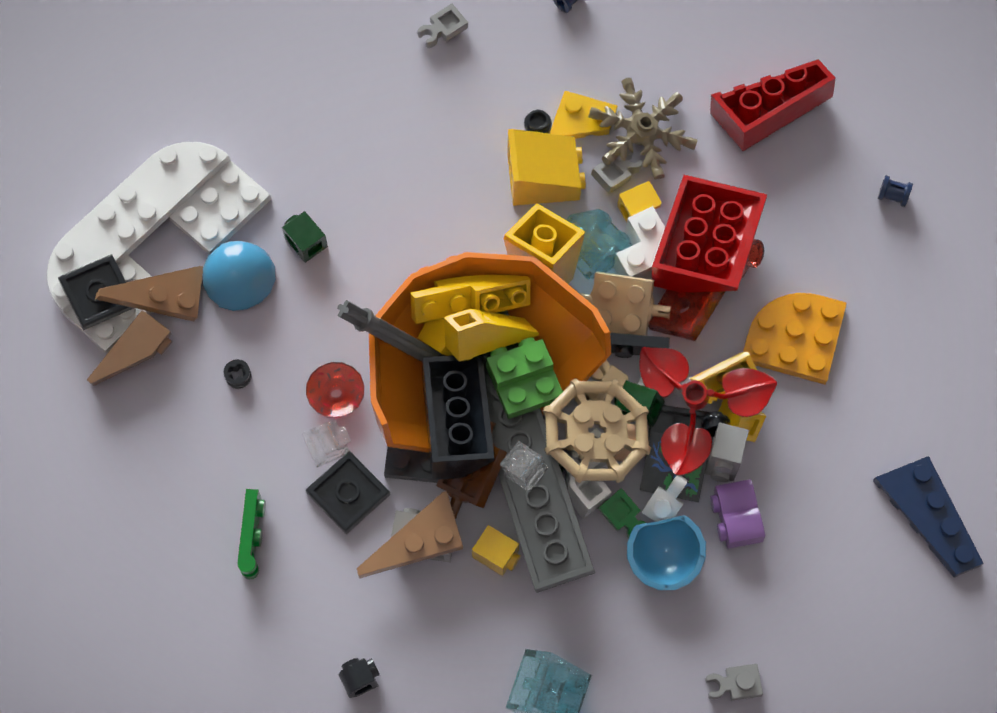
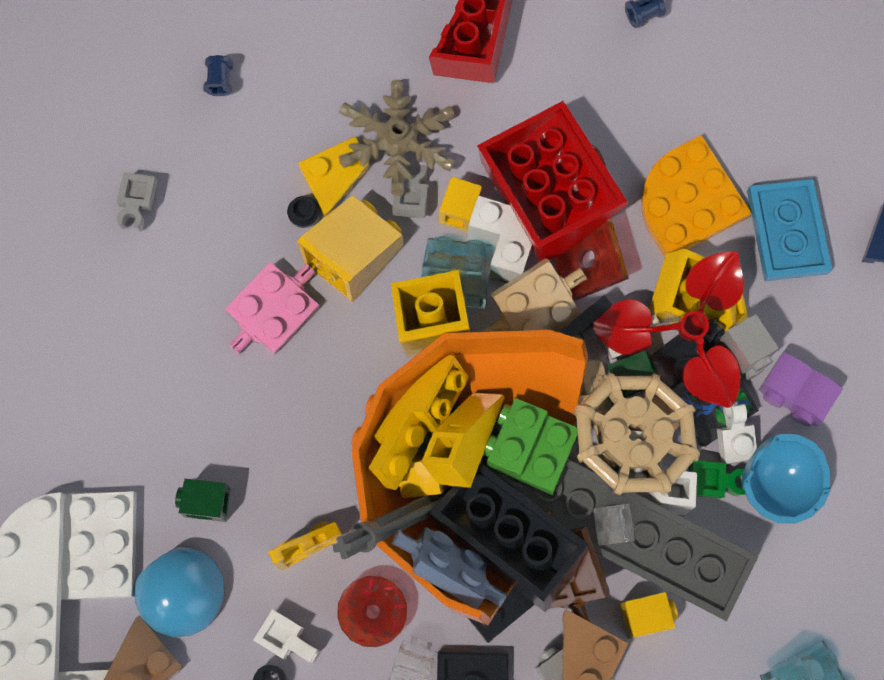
camera: 45 degrees left, 5 degrees up
(270, 355) = (282, 636): none -> white plate
(325, 312) = (299, 548): none -> yellow wing
(399, 392) = (450, 567): none -> sand blue plate
(459, 163) = (272, 308): none -> bright pink plate
(841, 413) = (789, 230): none -> dark azure plate

